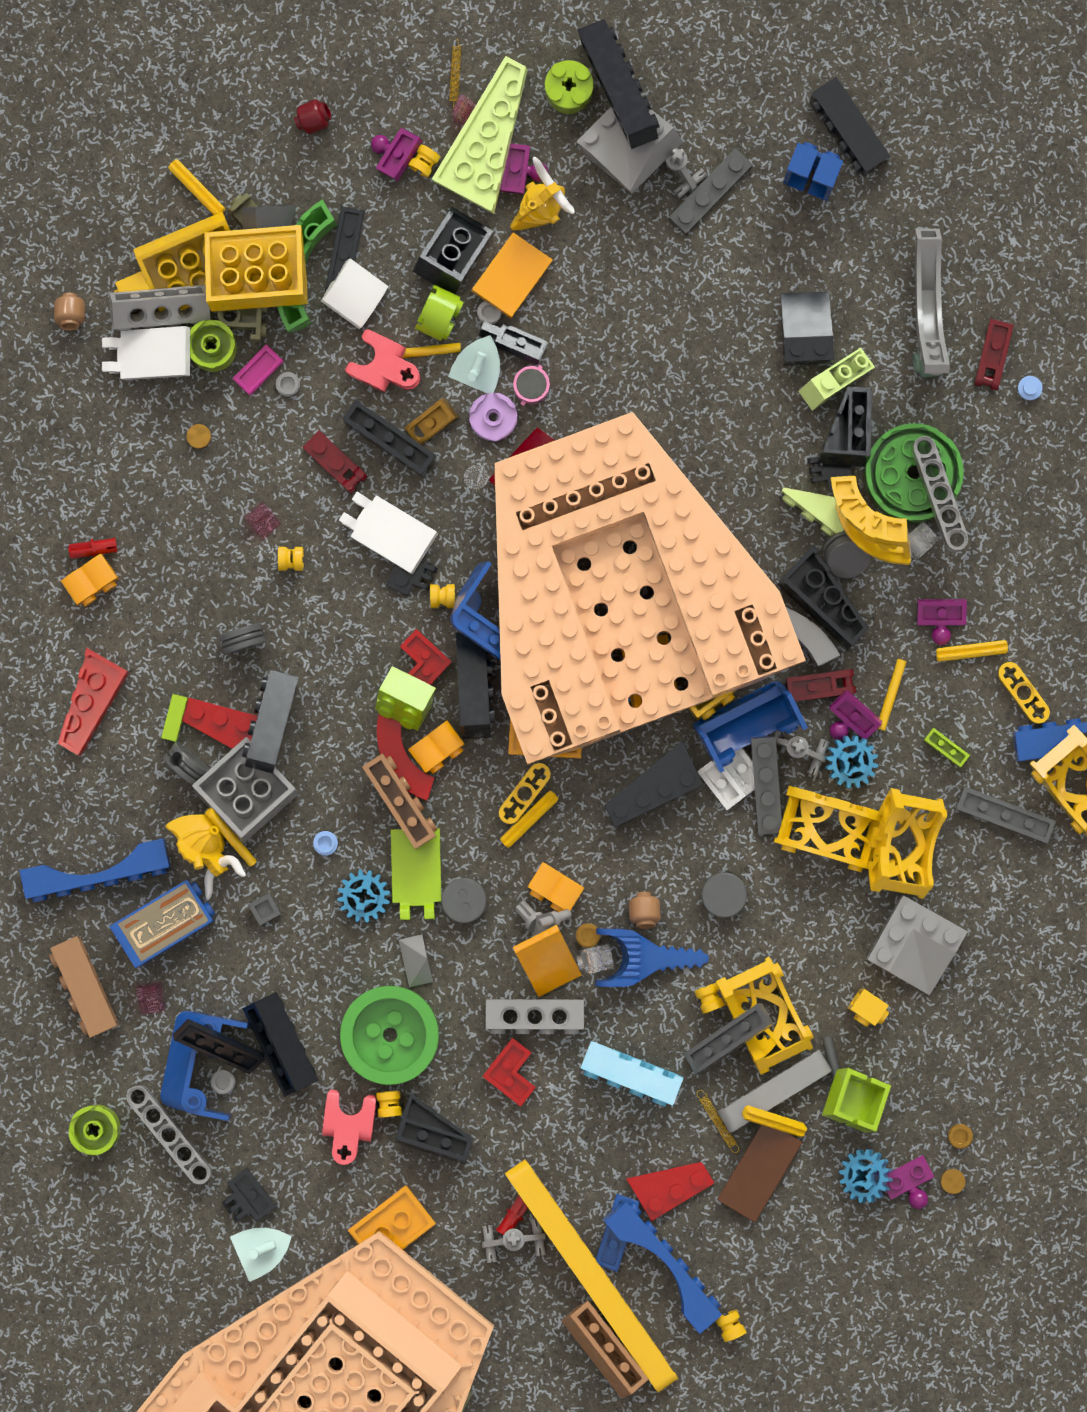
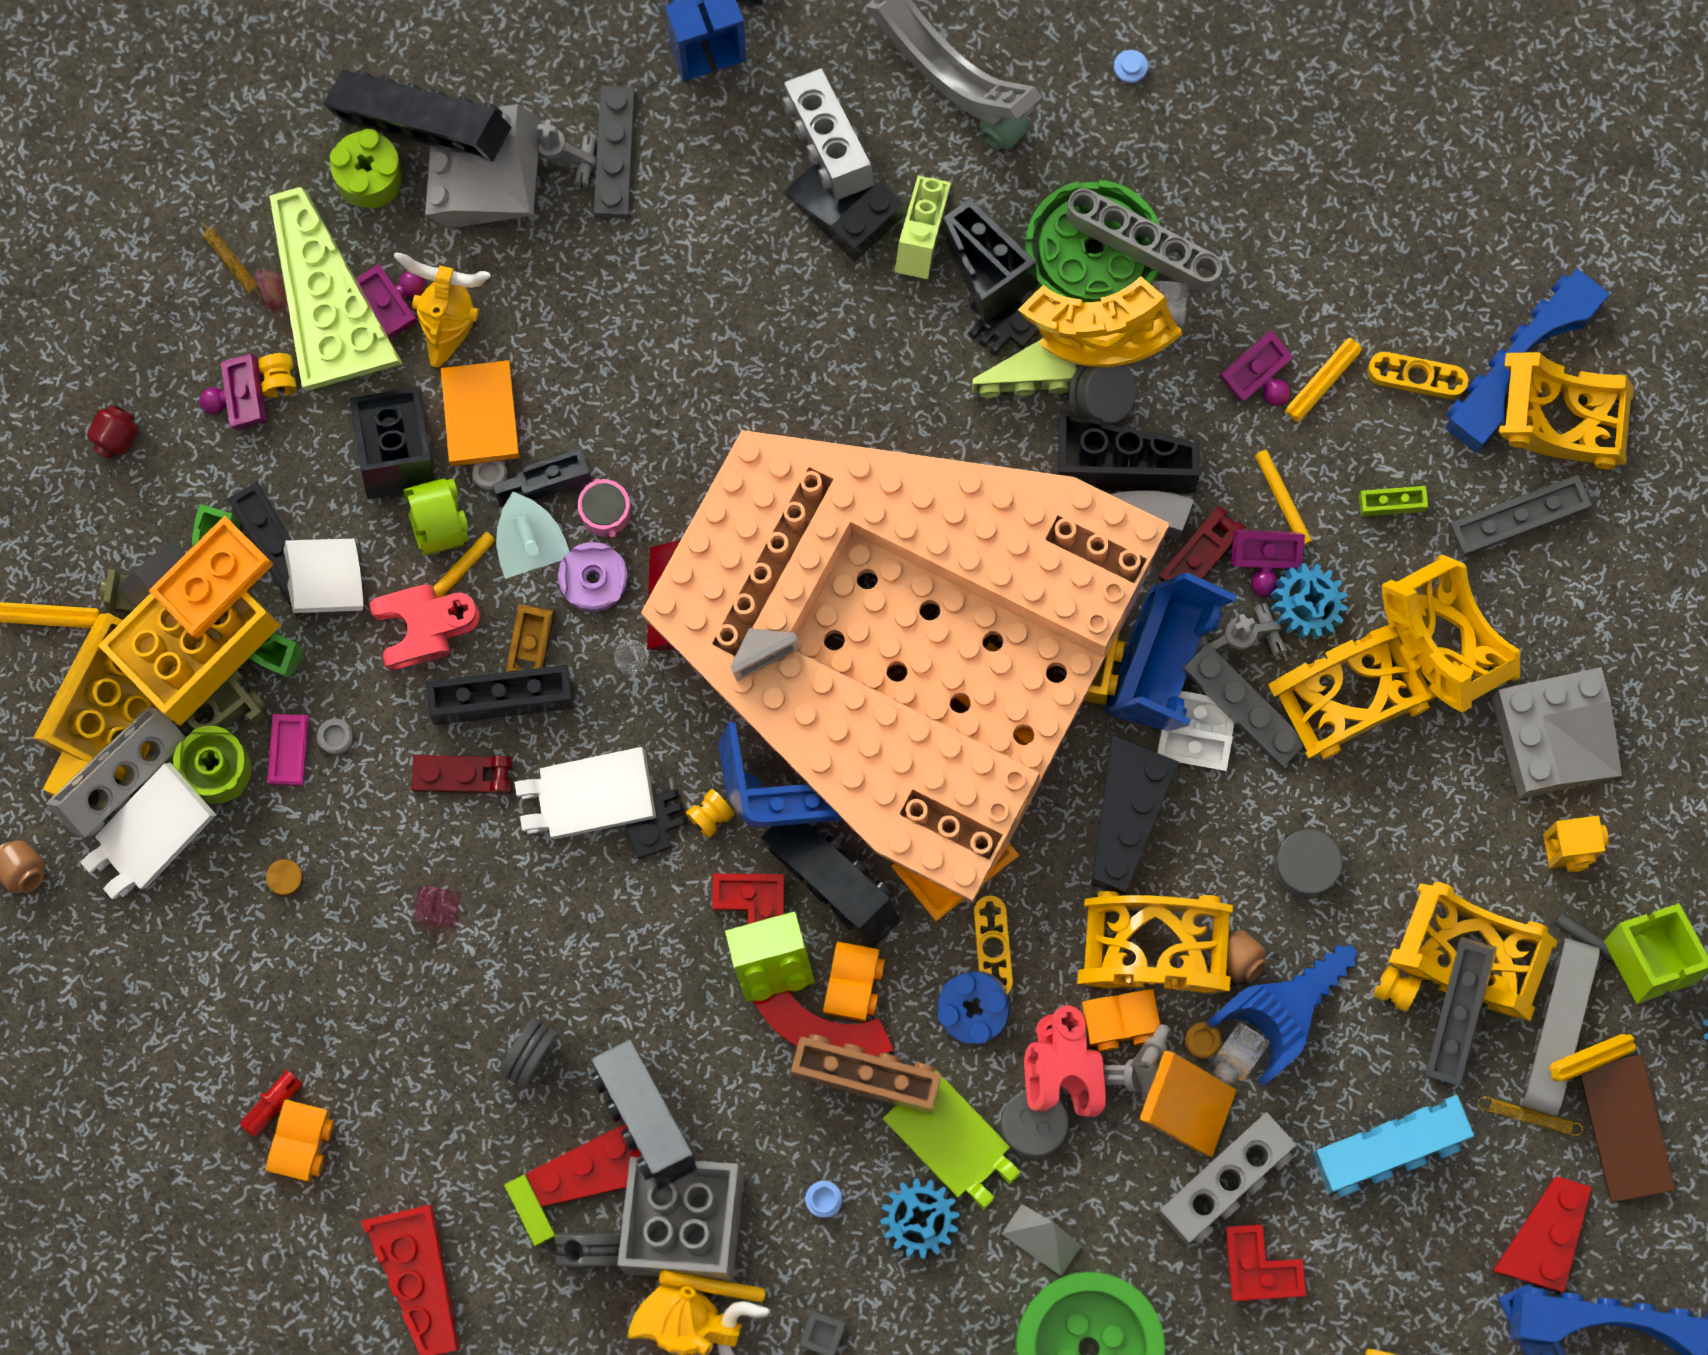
camera: 45 degrees left, 10 degrees down
(285, 558) = (499, 925): yellow wheel -> none
(290, 249) = (210, 577): none -> light orange tile
(497, 822) = (993, 1000): none -> blue plate
(507, 884) = (1064, 1061): none -> coral piece
(529, 819) = (1023, 971): yellow axle -> none
(535, 538) = (761, 649): none -> light grey slope
(609, 899) = (1191, 977): none -> yellow fence
(821, 318) = (828, 133): none -> light grey brick
(994, 353) = (1062, 63): dark red plate -> none

